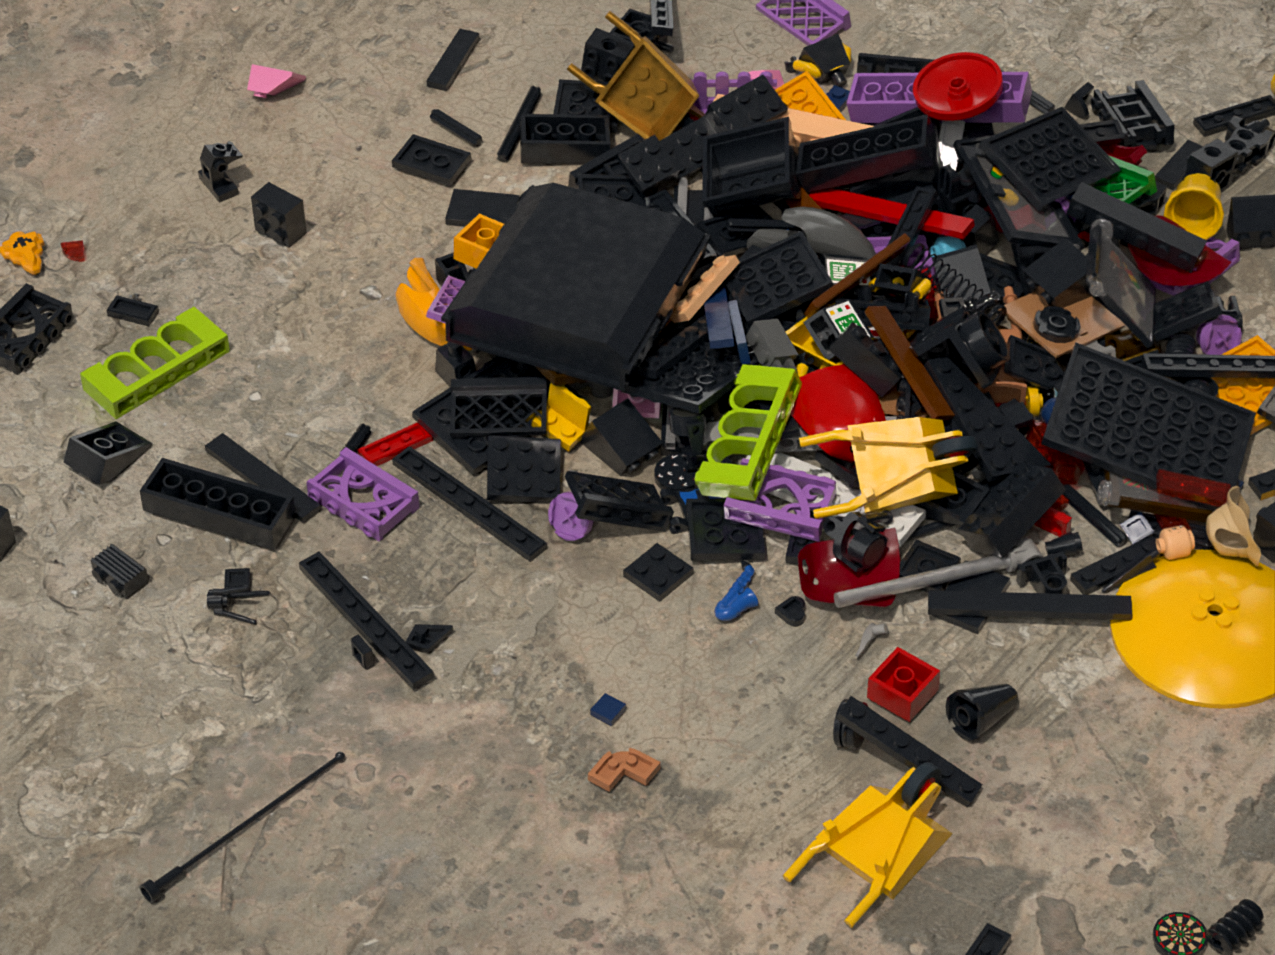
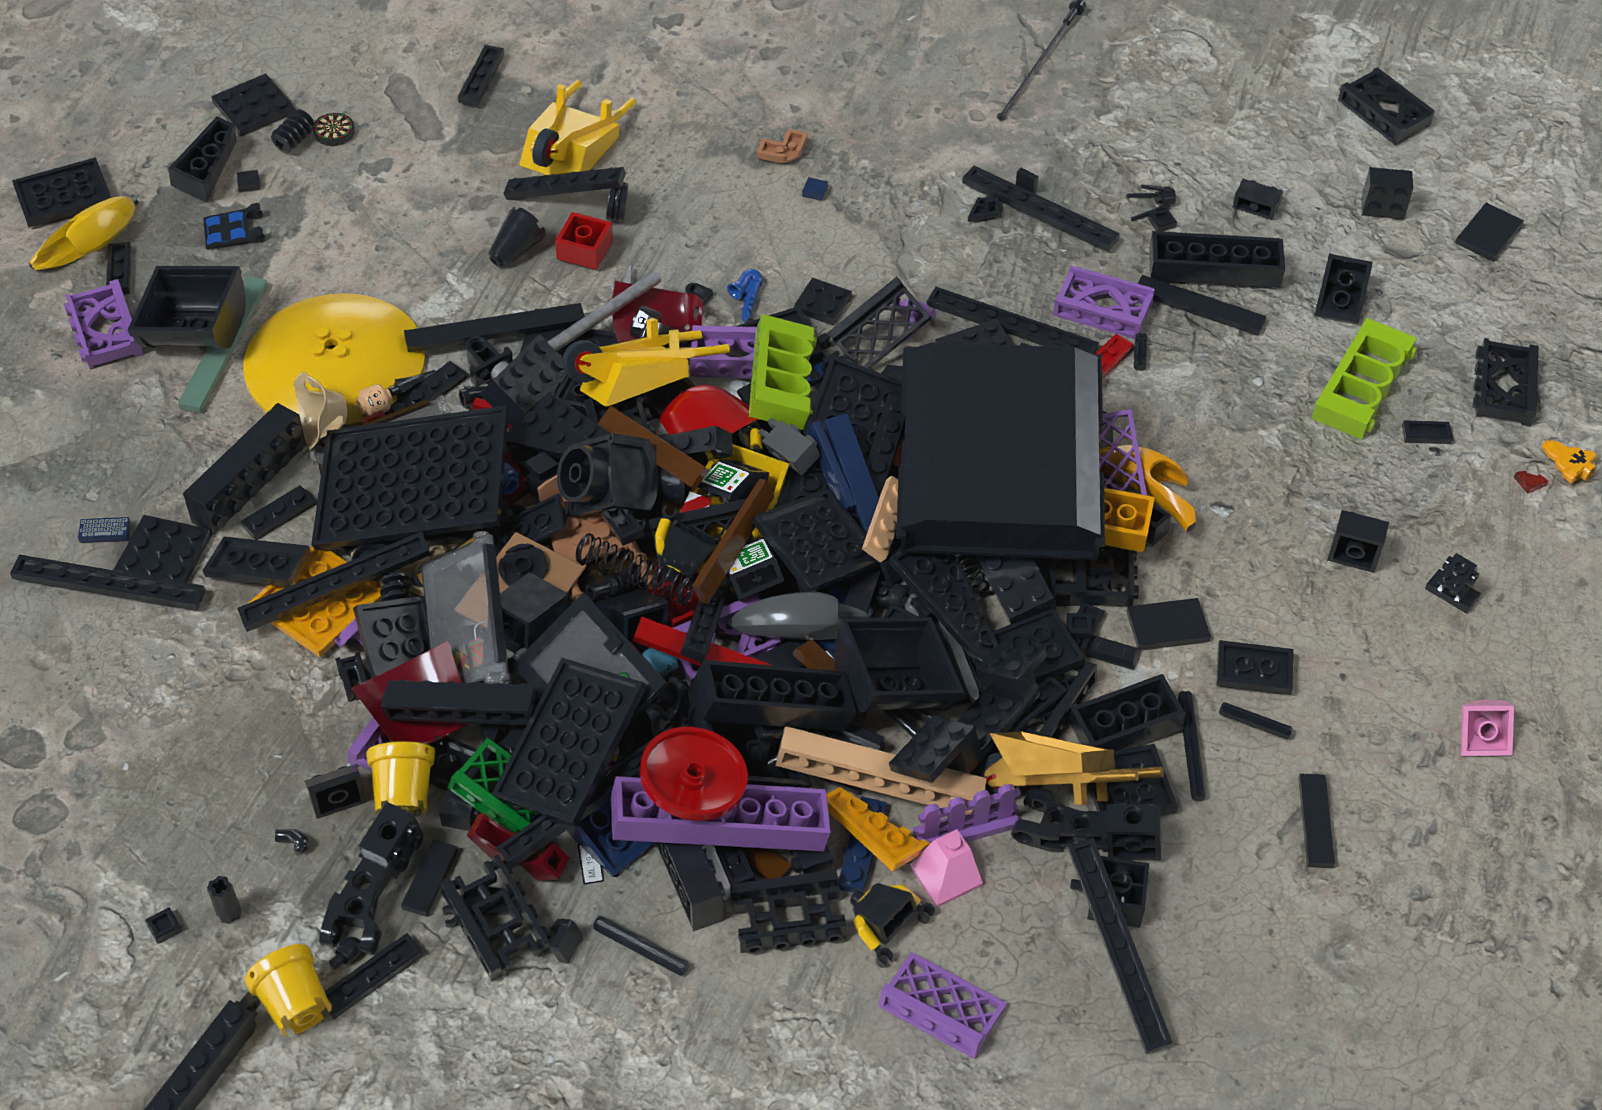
camera: 160 degrees right, 5 degrees up
(1192, 488) = (361, 425): clear red tile -> none

